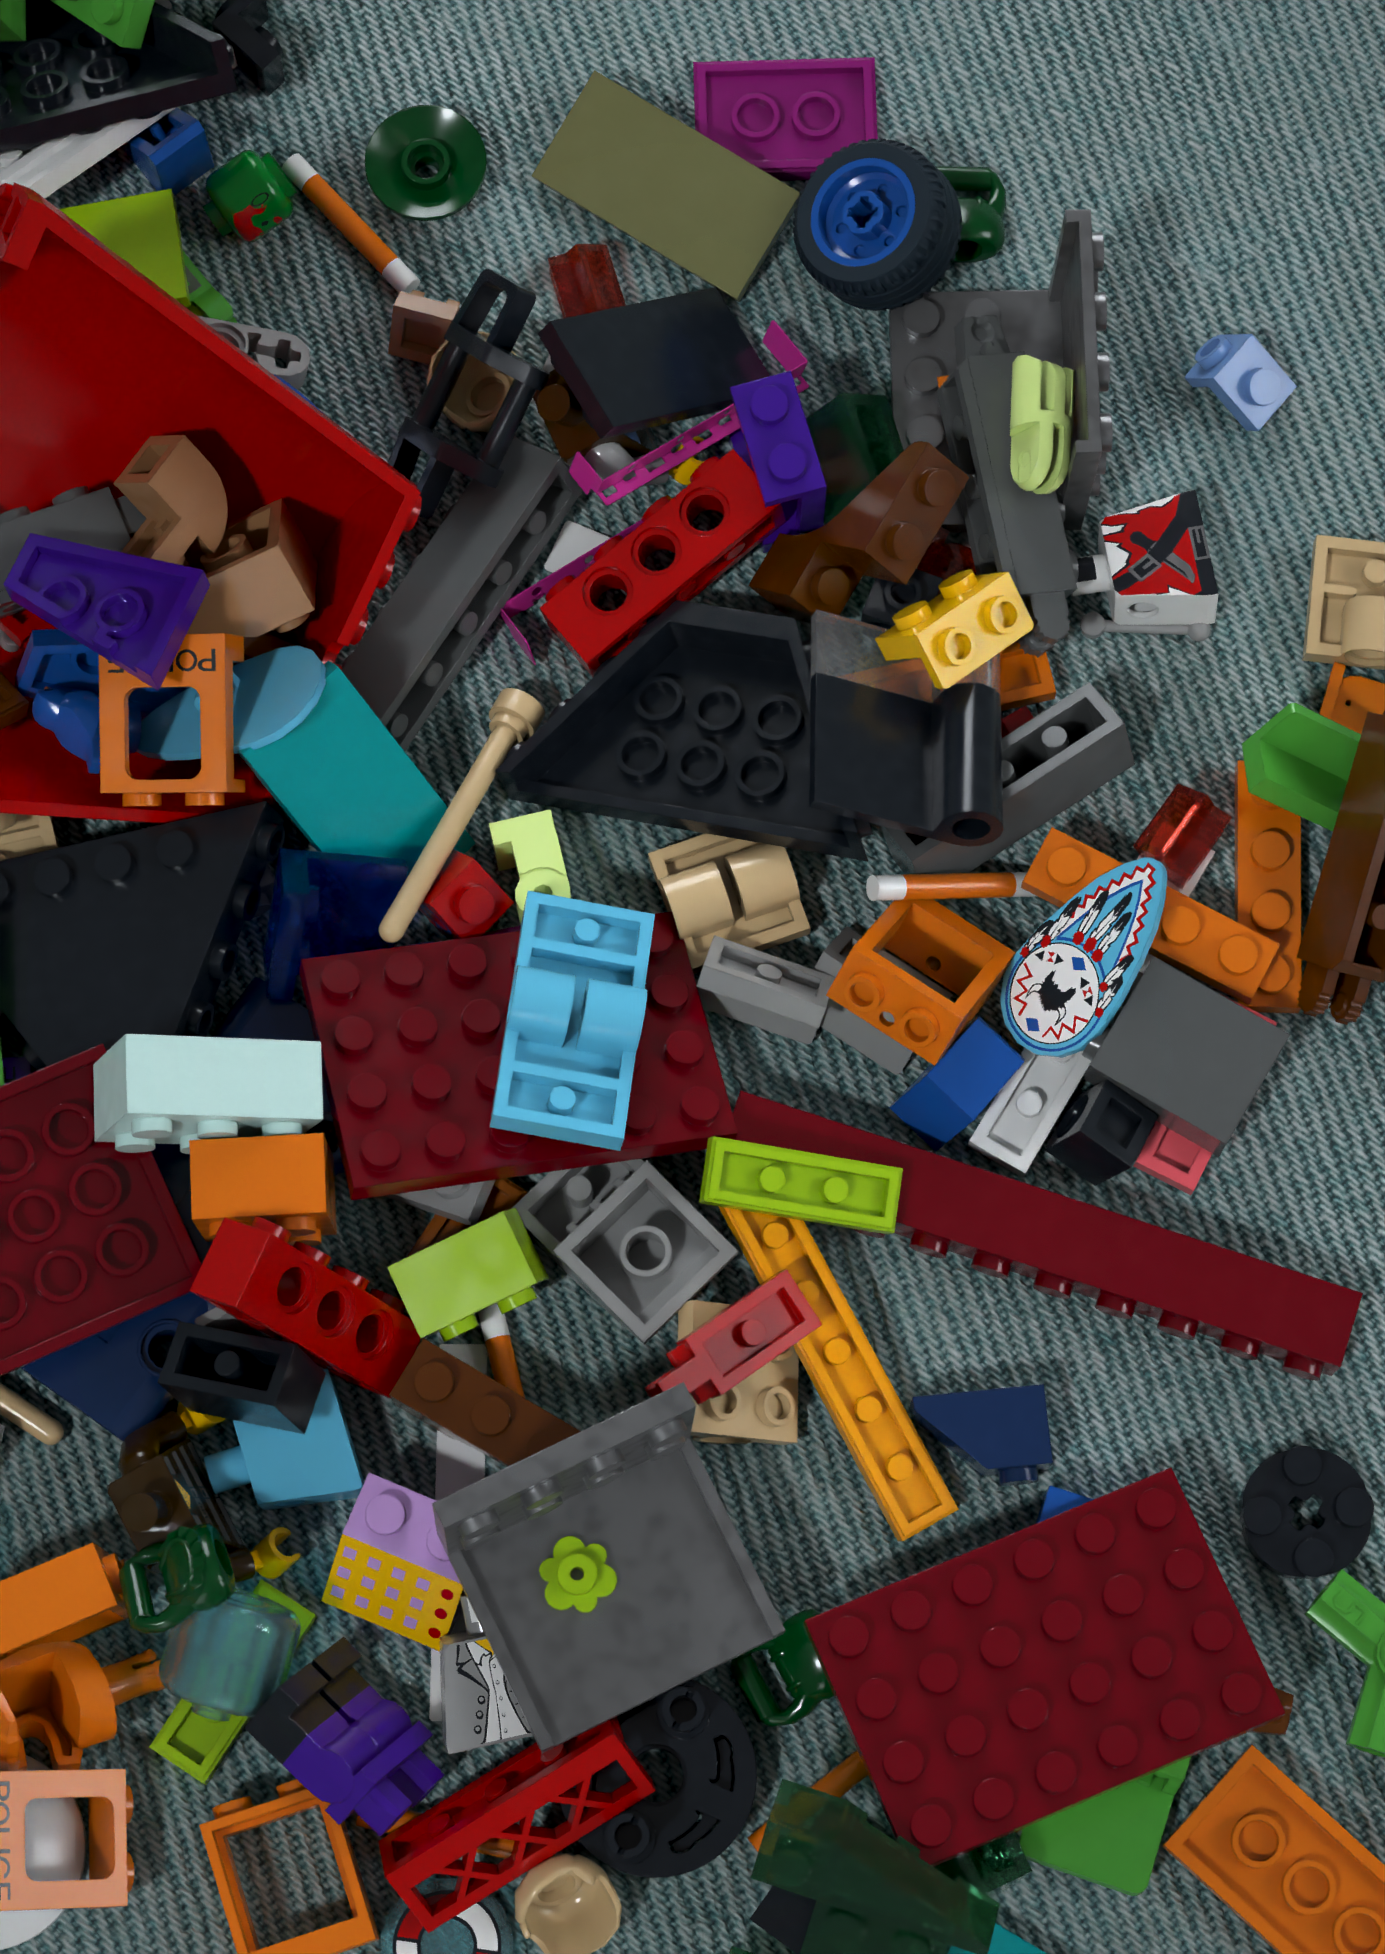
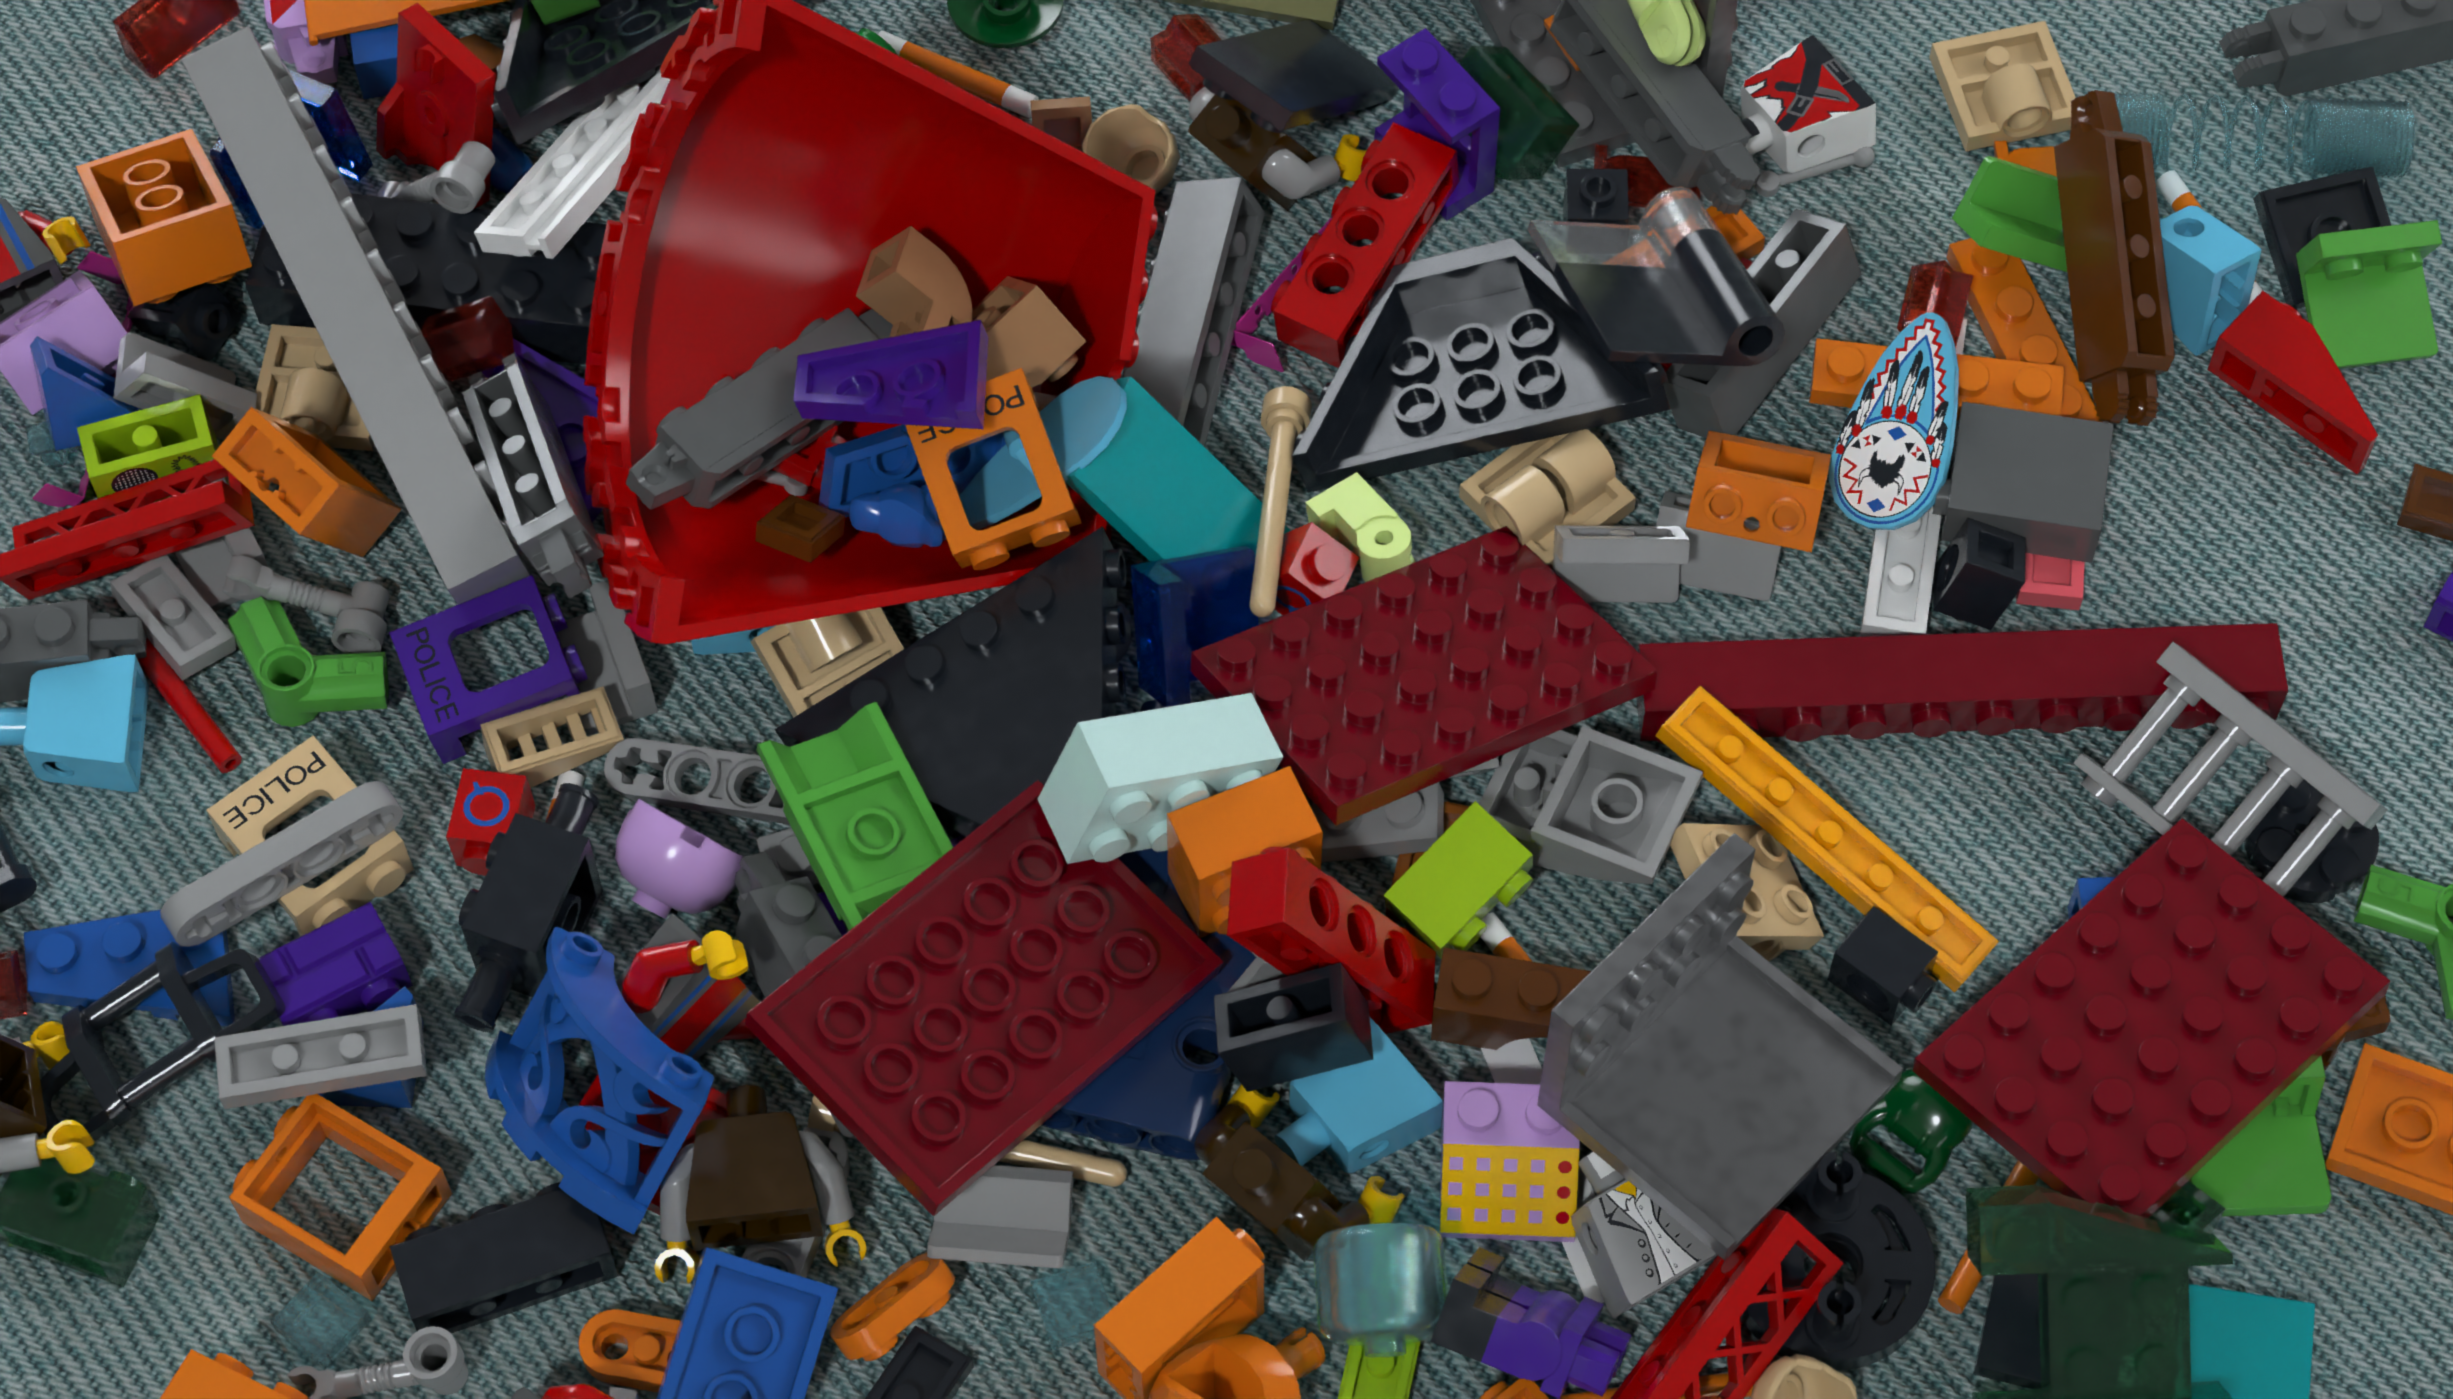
camera: 20 degrees left, 15 degrees down
(194, 1573) = (1324, 1205): dark green piece -> none
(464, 340) = (1149, 104): black bar -> none
(562, 1589) = (1683, 1104): lime plant -> none
(572, 543) = (1270, 265): white sticker -> none
(573, 1021) = (1471, 615): medium azure plate -> none
(588, 479) = (1272, 180): dark pink piece -> none
(739, 1340) = (1758, 813): red hinge -> none
(801, 1185) = (1735, 693): lime tile -> none
(837, 1499) = (1884, 967): none -> black brick
(874, 536) = (1554, 148): reddish brown arch -> none
(946, 886) = (1747, 417): orange bar -> none
(959, 627) = (1667, 189): yellow bracket -> none
(959, 1085) = (1830, 580): blue slope -> none
(991, 1430) = (1998, 859): dark blue slope -> none
(1273, 1393) = (2237, 724): none -> light grey fence

